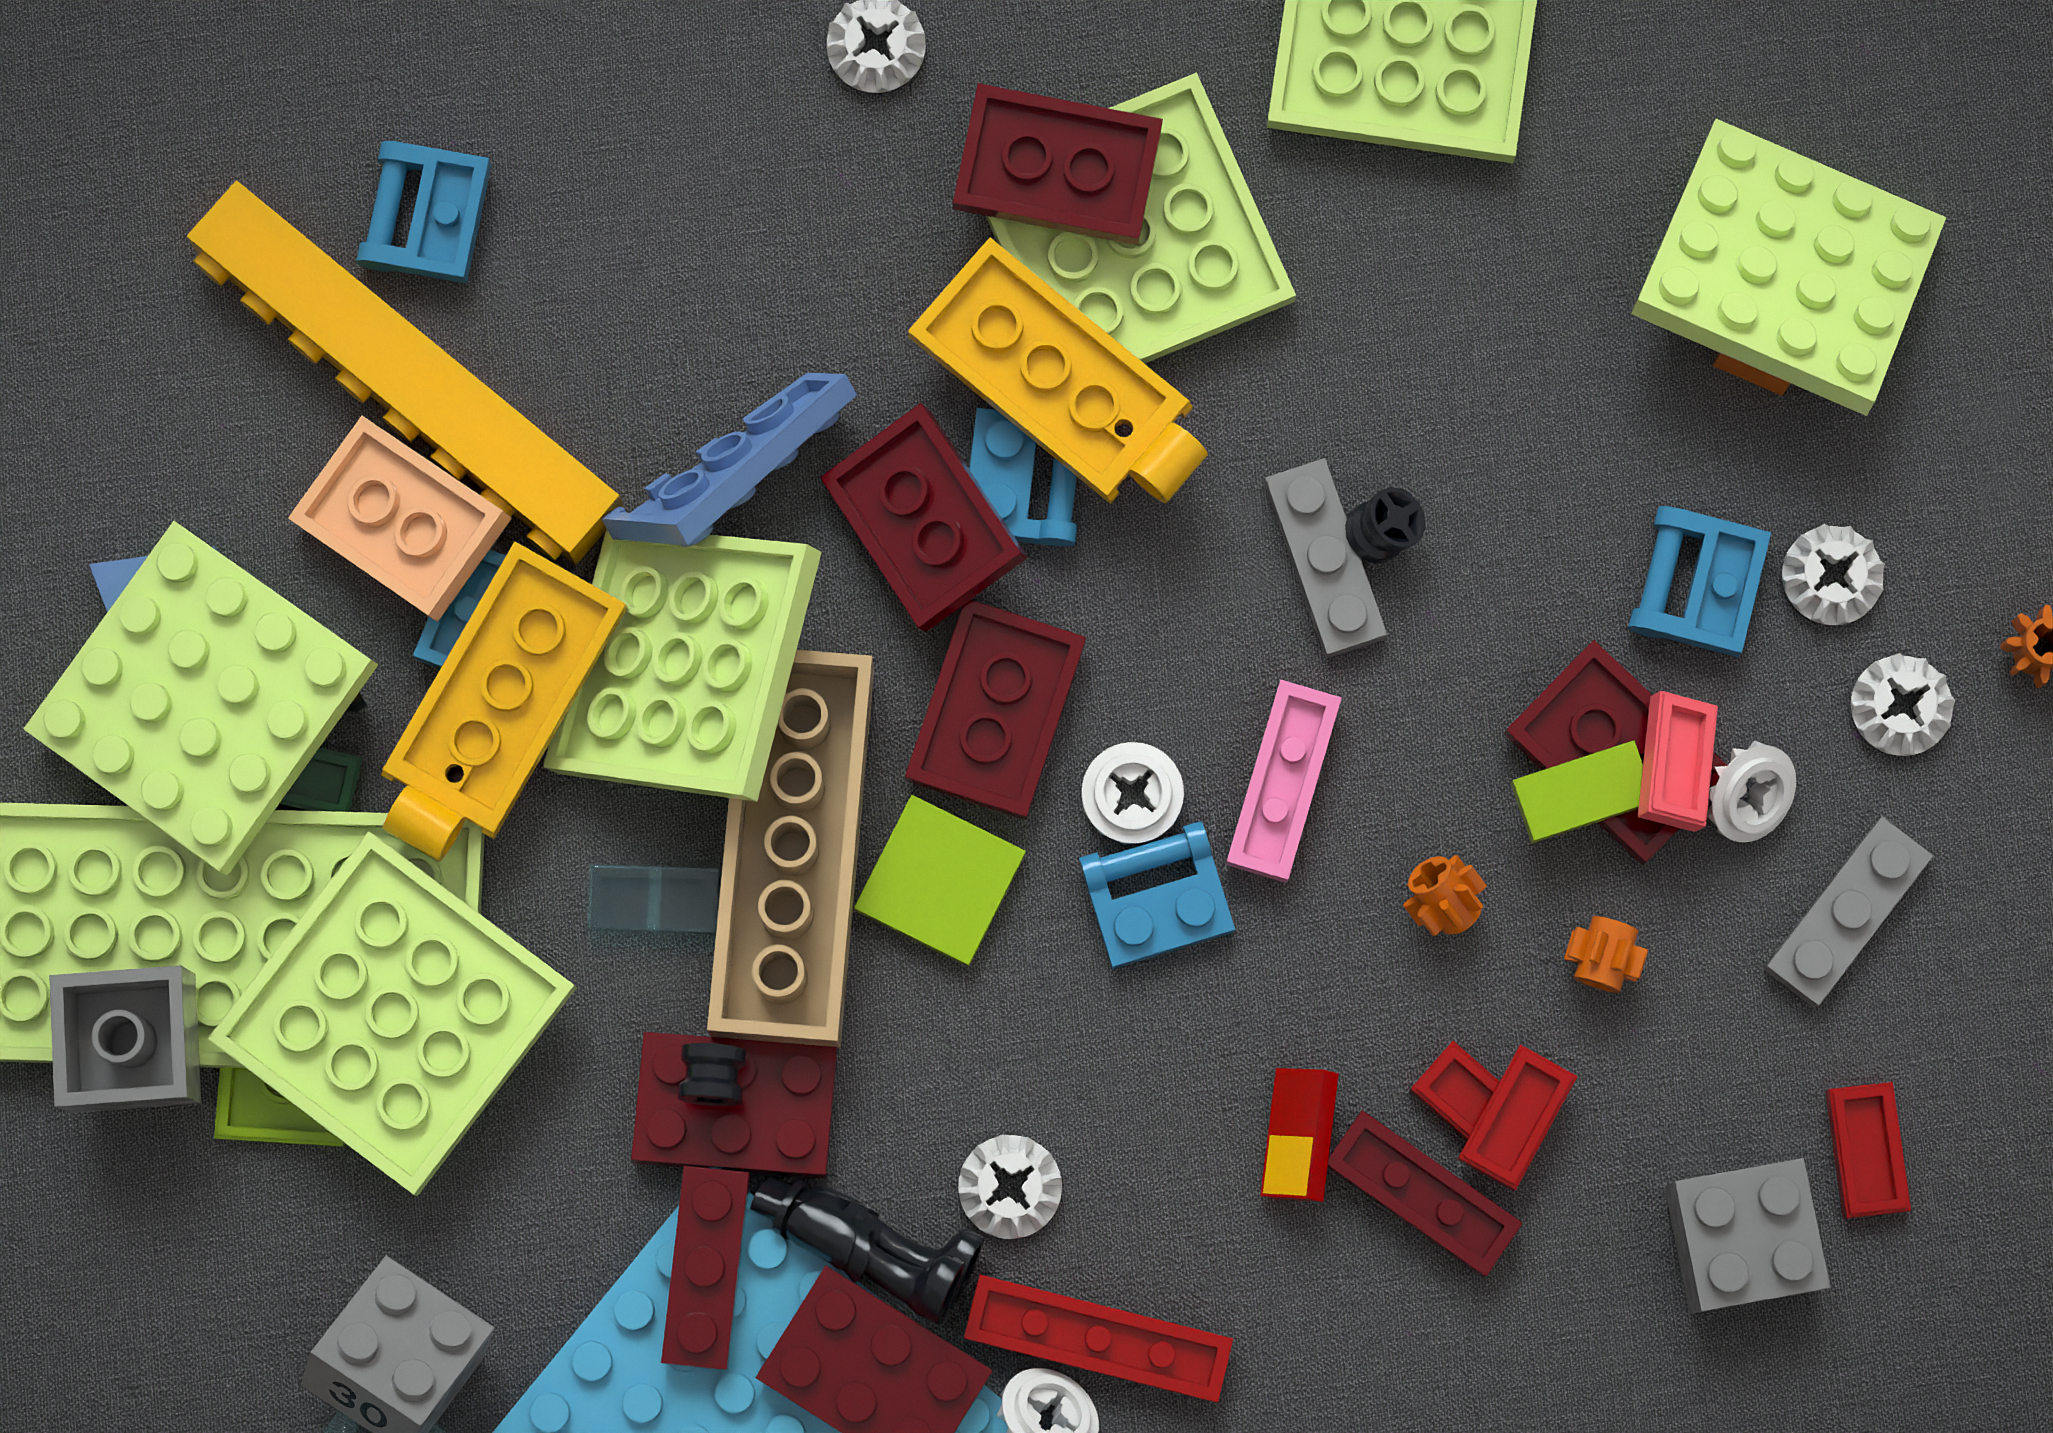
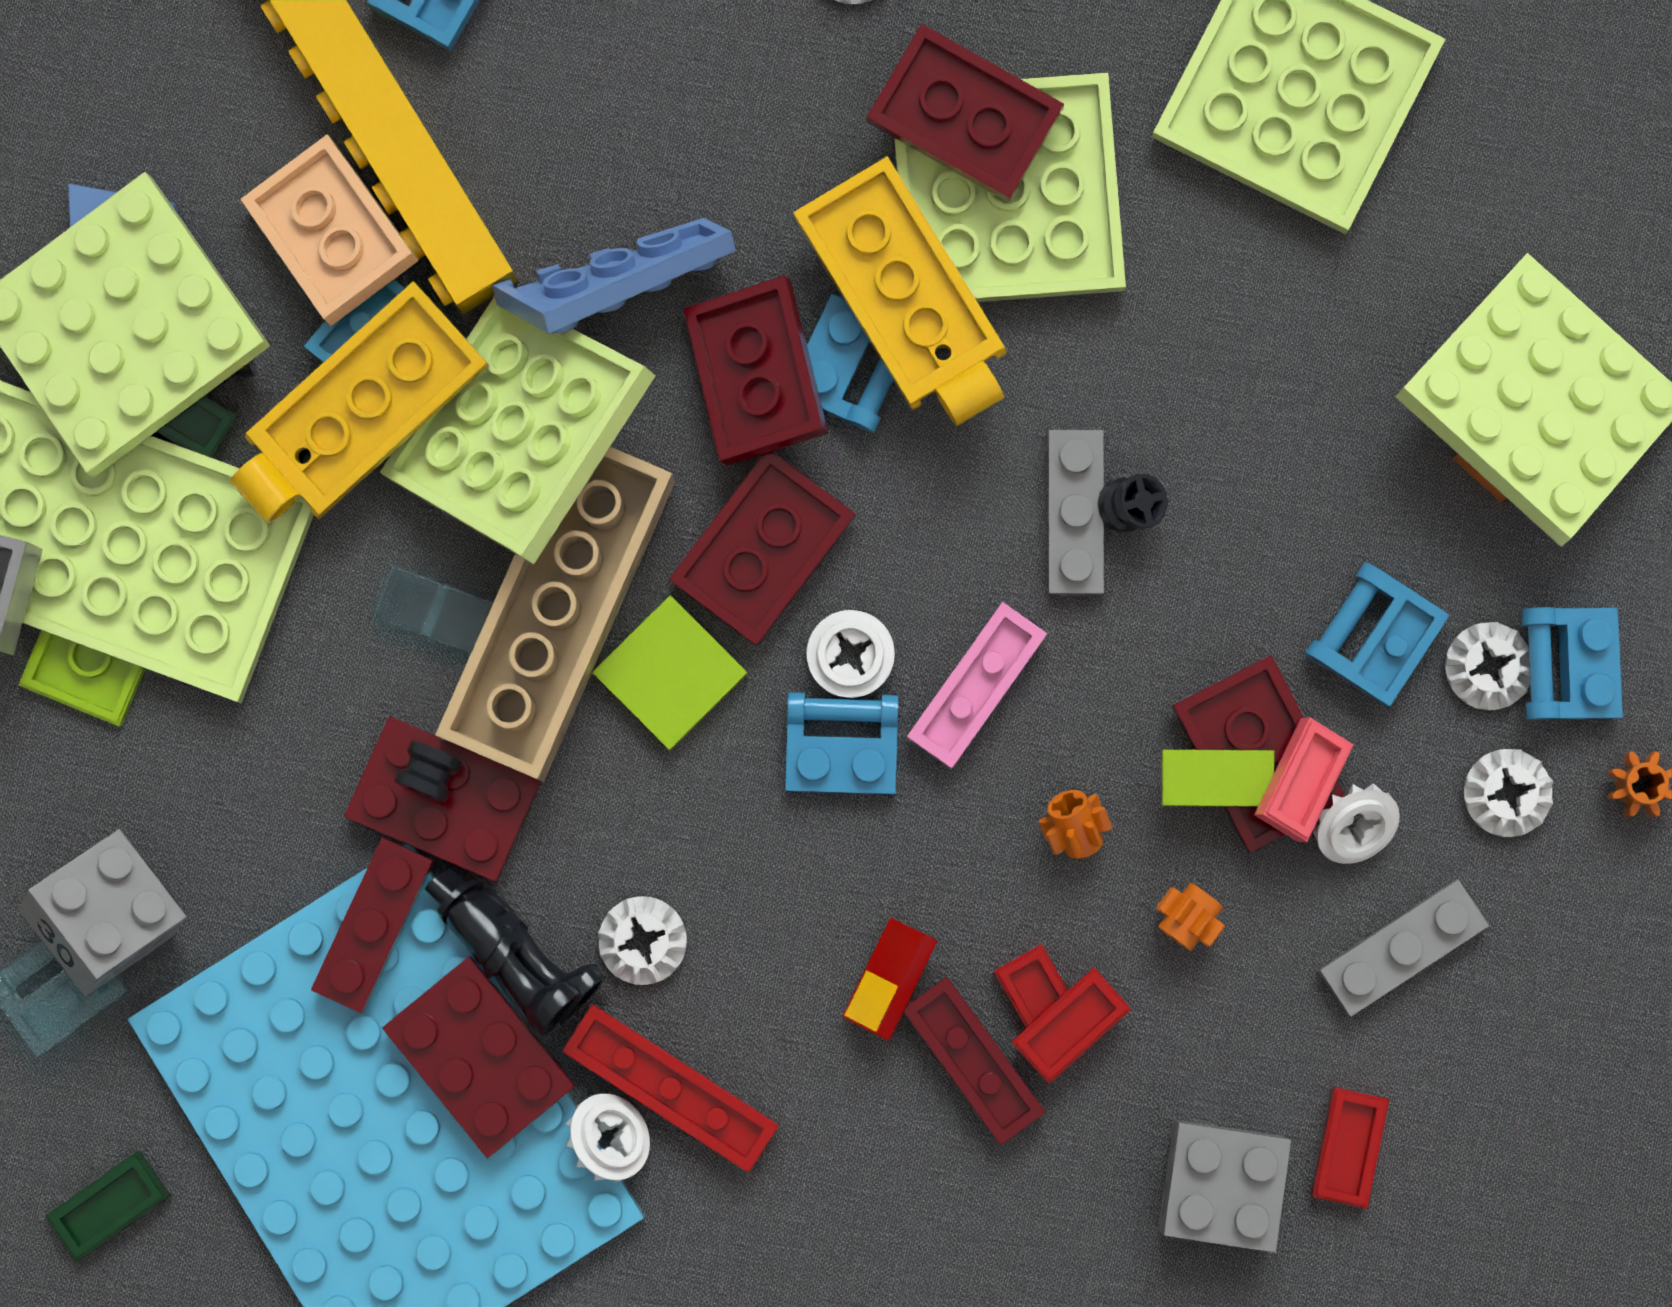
camera: 25 degrees right, 5 degrees up
(392, 1013) = (188, 635): yellowish green plate -> none
(1936, 535) = (1587, 663): none -> dark azure plate

